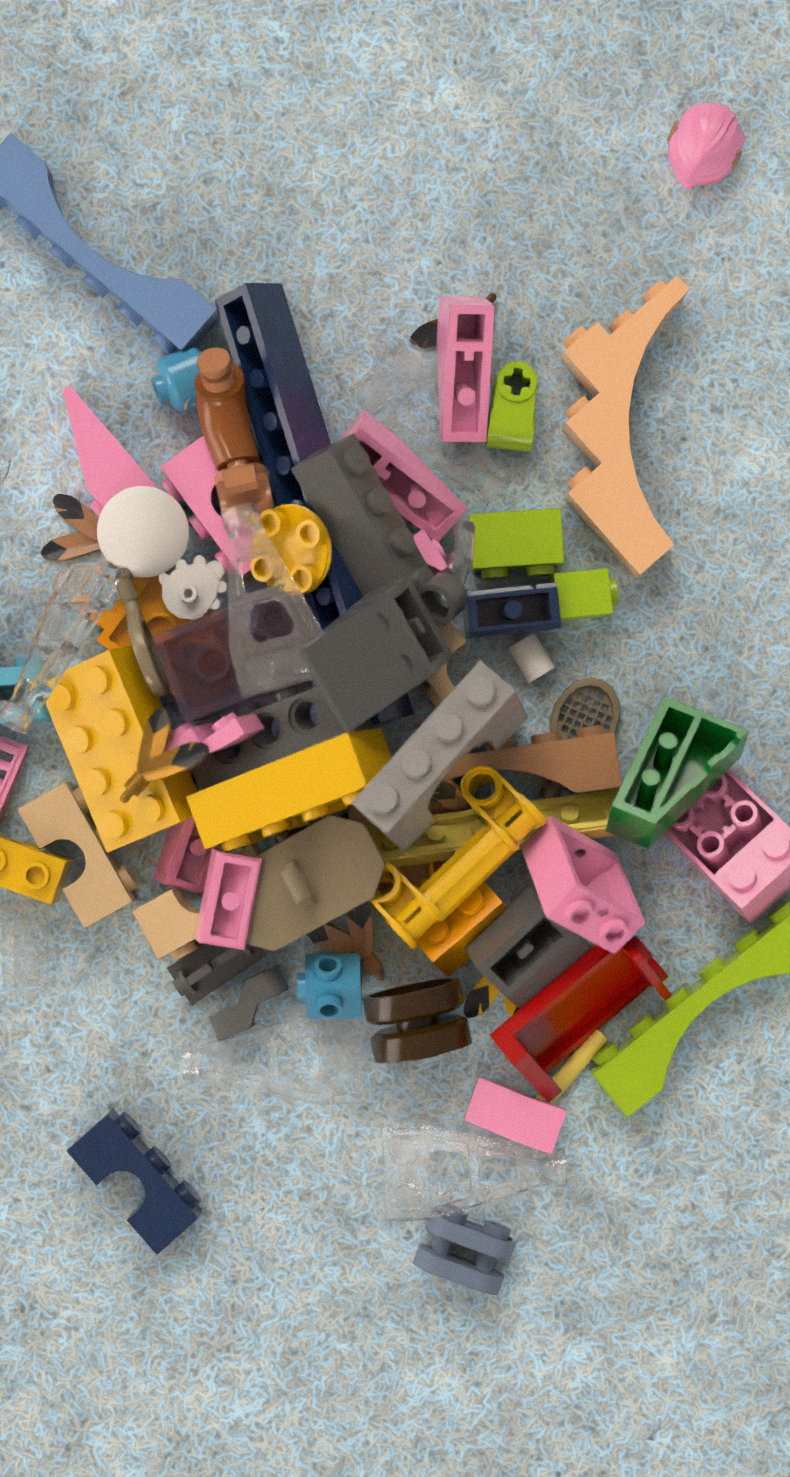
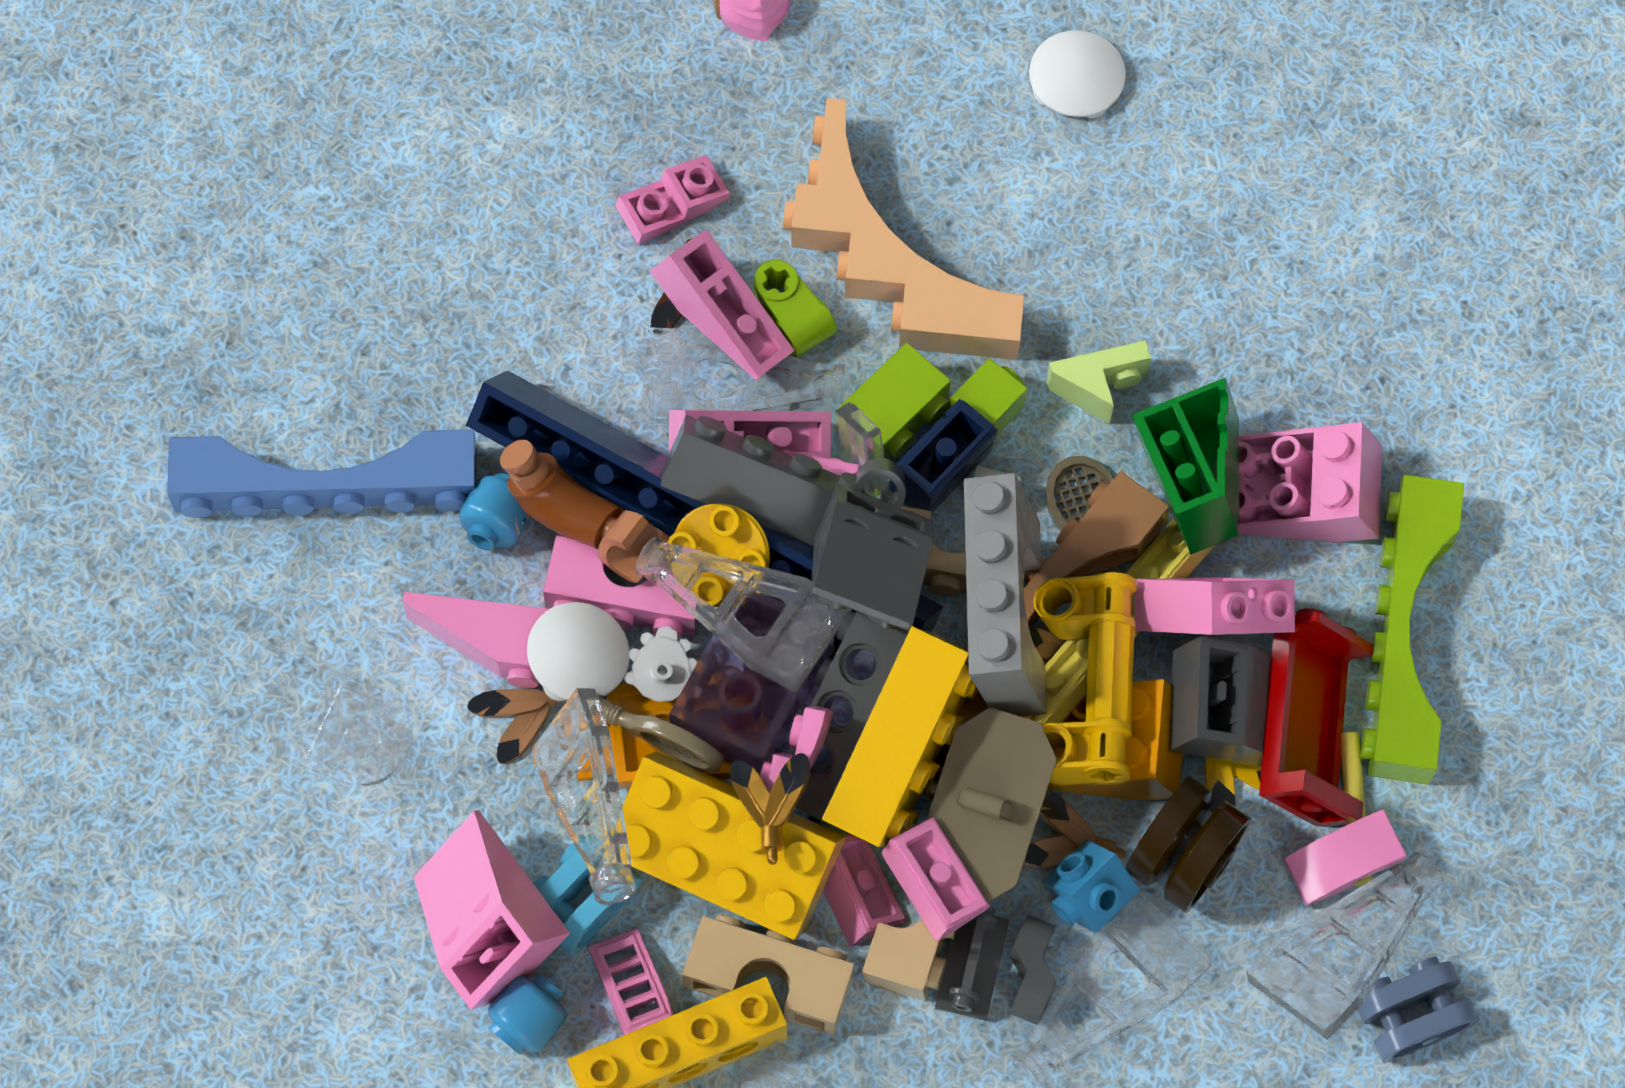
camera: 45 degrees left, 20 degrees down
(509, 253) = (678, 198): none -> bright pink slope
(663, 637) = (1086, 377): none -> yellowish green slope

